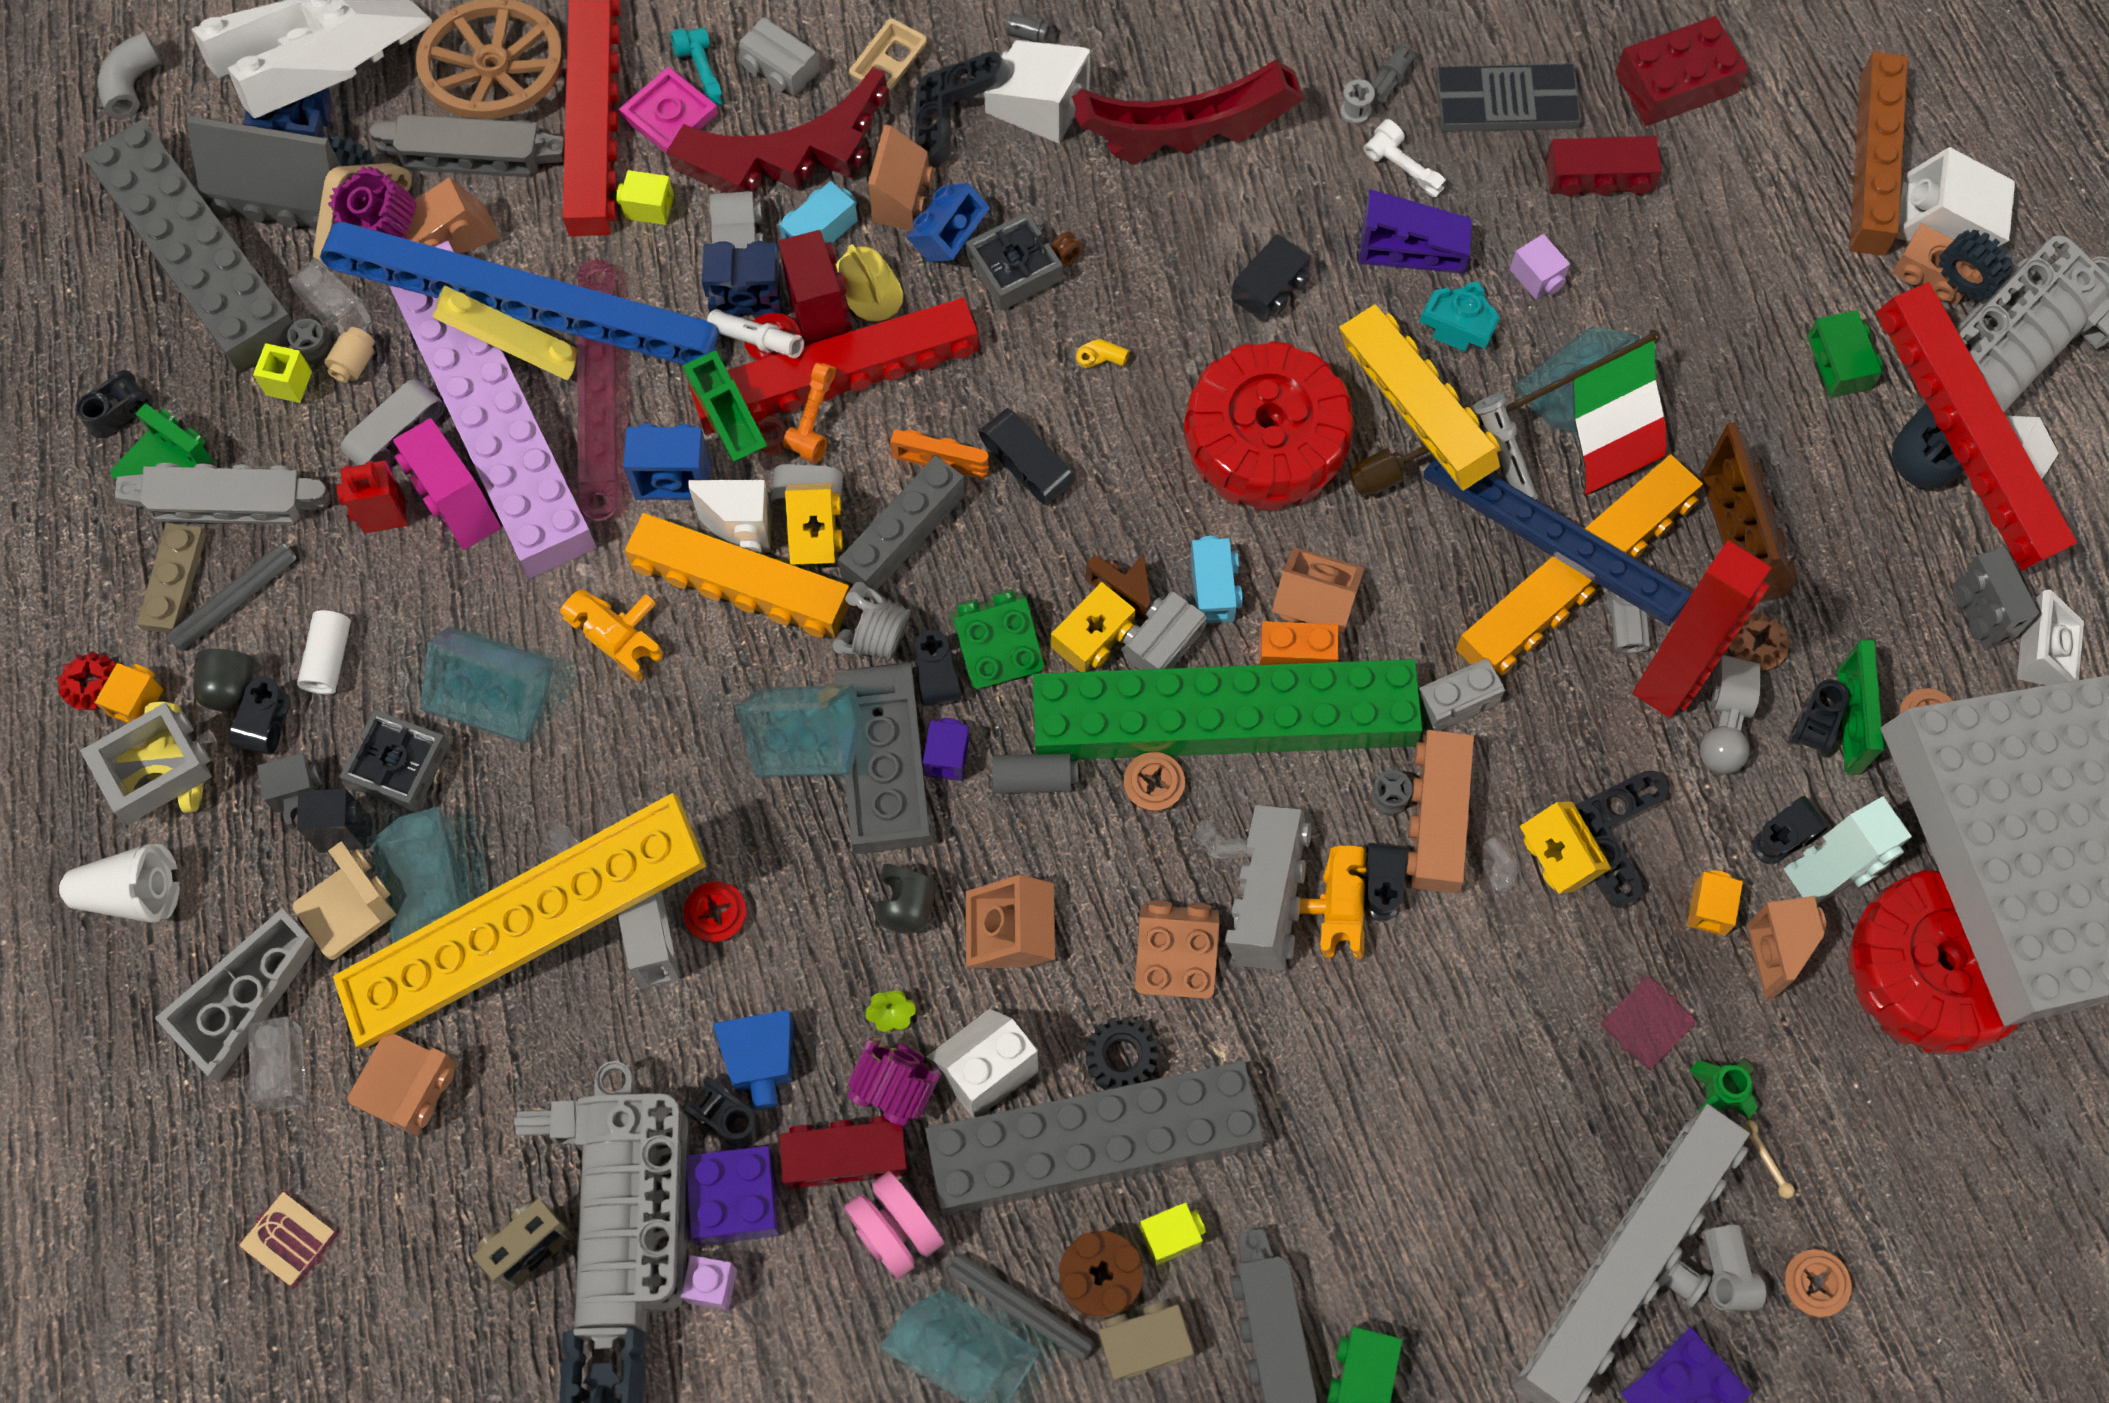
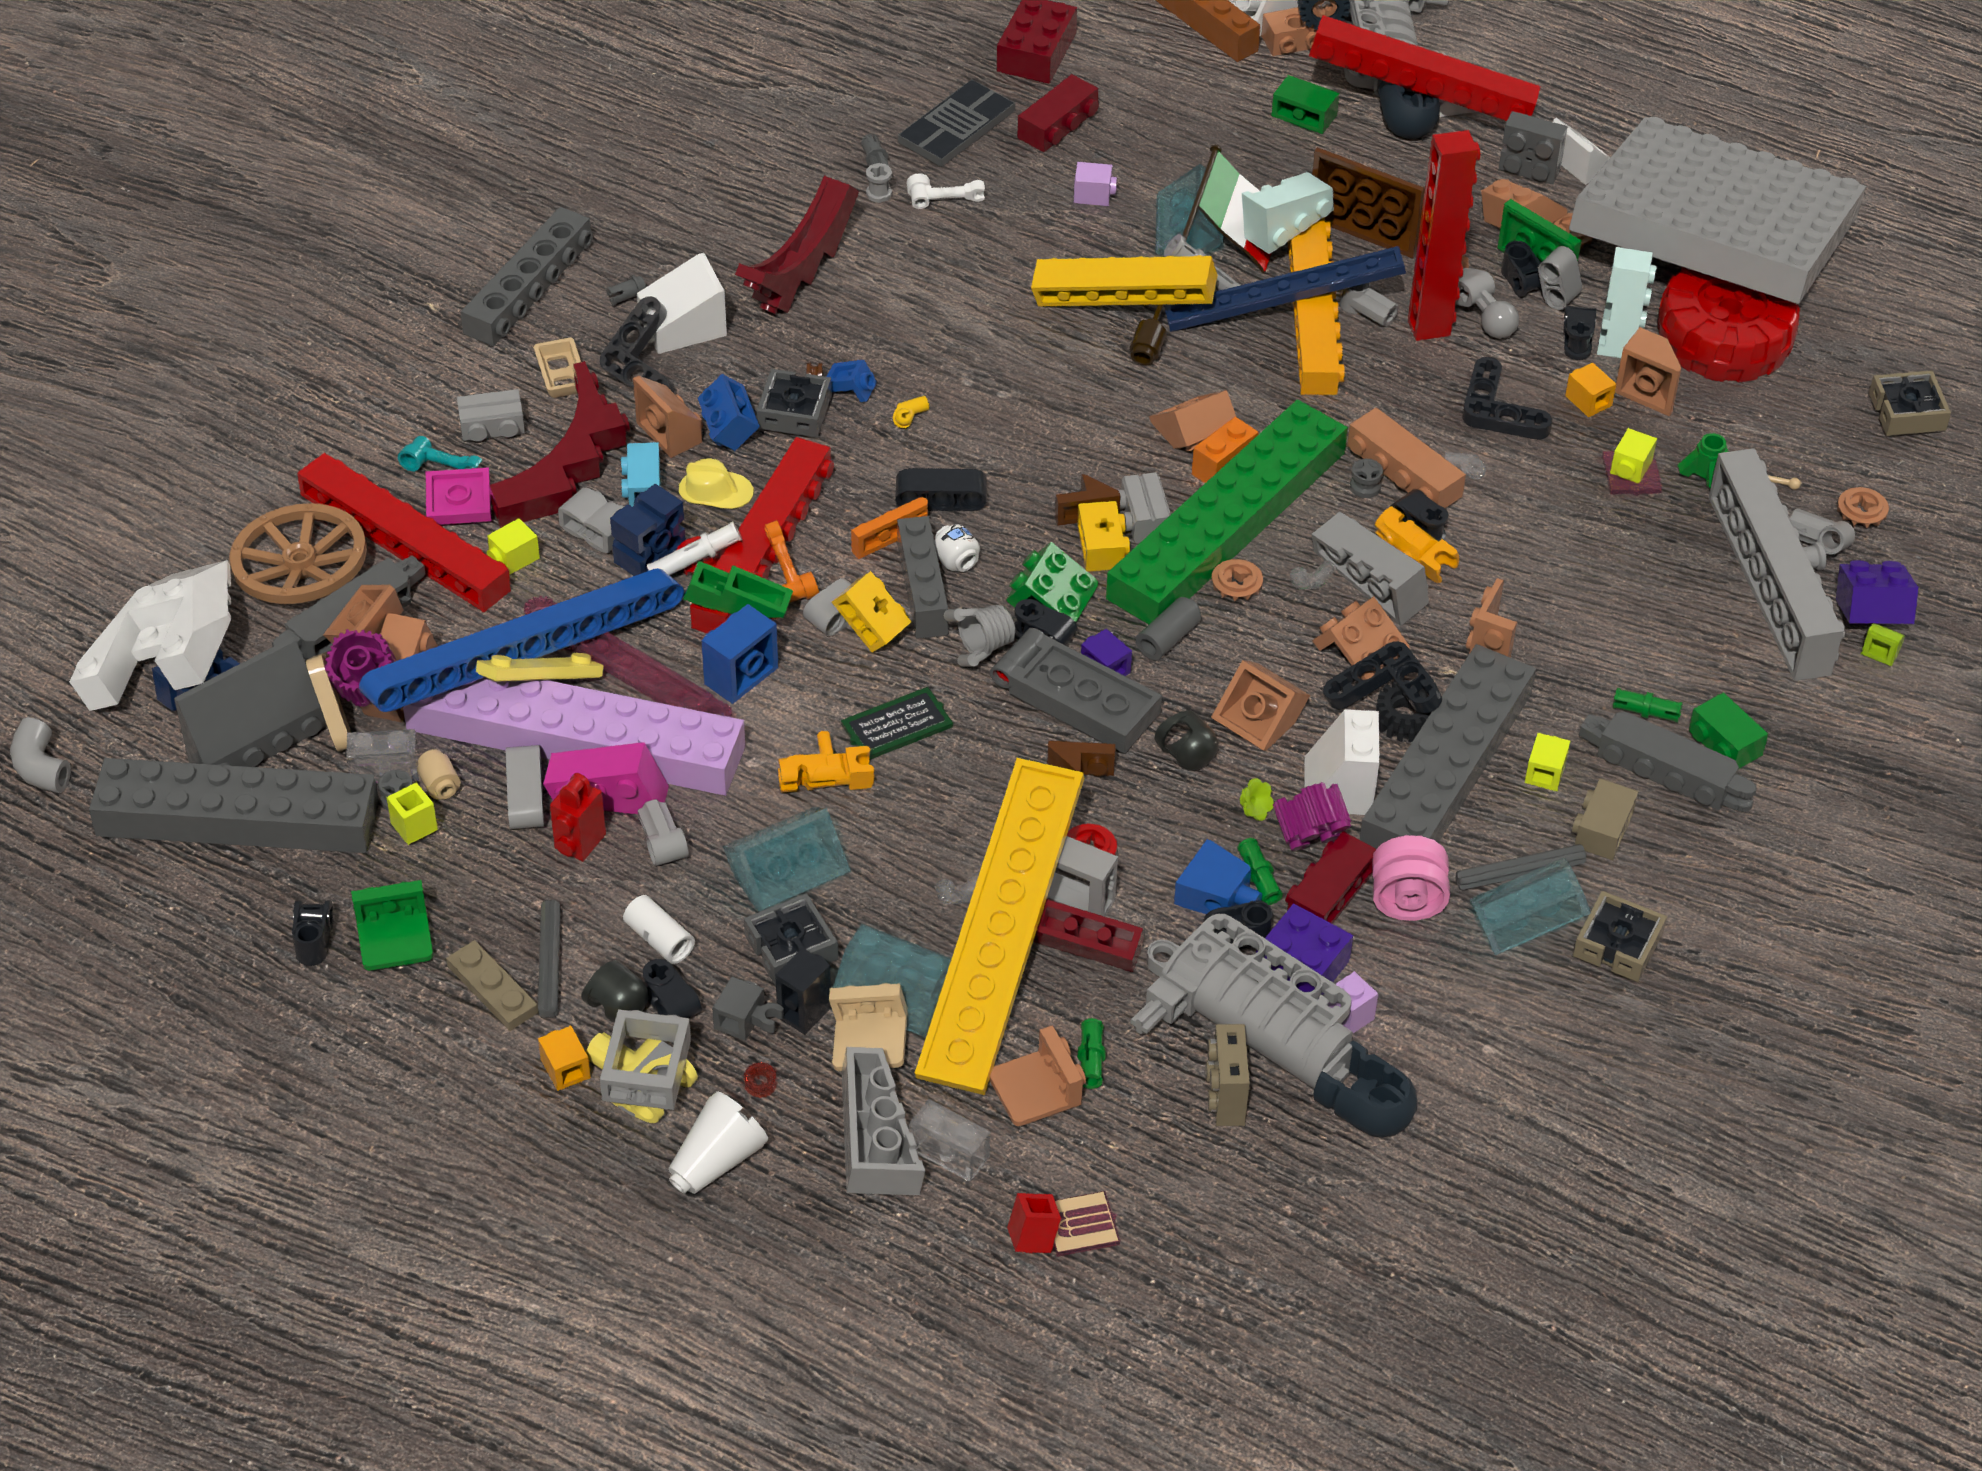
camera: 50 degrees left, 20 degrees down
(73, 691) = (519, 1093): red gear -> none
(222, 494) = (467, 906): light grey hinge -> none
(232, 1207) = (1034, 1223): none -> red brick
(245, 865) = (757, 1070): none -> clear red bush
(426, 576) = (663, 838): none -> light grey piece
(430, 165) = (366, 611): none -> nougat slope
(475, 1102) = (1092, 1052): none -> green pin
(594, 997) = (1089, 935): none -> dark red brick
(725, 643) = (897, 723): none -> piece
(735, 511) = (818, 644): white slope -> none
(737, 576) = (859, 679): light orange brick -> none
(795, 821) = (1084, 757): none -> reddish brown slope
(801, 730) = (1019, 706): clear light blue slope -> none
(808, 1079) = (1260, 870): none -> green pin
(815, 287) = (710, 488): dark red brick -> none
(962, 525) = (956, 548): none -> white head
(1089, 1254) = (1542, 808): reddish brown brick -> none
(1092, 280) = (852, 376): none -> blue bracket
(1142, 1012) = (1392, 670): none -> black beam
(1214, 580) = (1126, 456): medium azure brick -> none
(1268, 425) = (1059, 364): red wheel -> none
(1271, 278) = (955, 300): black brick -> none
(1272, 1046) = (1489, 628): none -> nougat bracket
(1335, 1272) = (1647, 705): none -> green pin
(1413, 235) = (1004, 219): dark purple wedge -> none
(1459, 695) = (1341, 396): light grey brick -> none
(1461, 316) = (1085, 238): teal plate -> none
(1579, 860) = (1476, 412): yellow brick -> none
(1651, 457) = (1285, 210): none -> light aqua wedge
(1655, 1013) = (1633, 455): none -> neon yellow brick
(1834, 762) = (1560, 278): none -> light grey beam
(1906, 650) = (1503, 190): none -> nougat slope
(2012, 1226) = (1909, 403): none -> piece

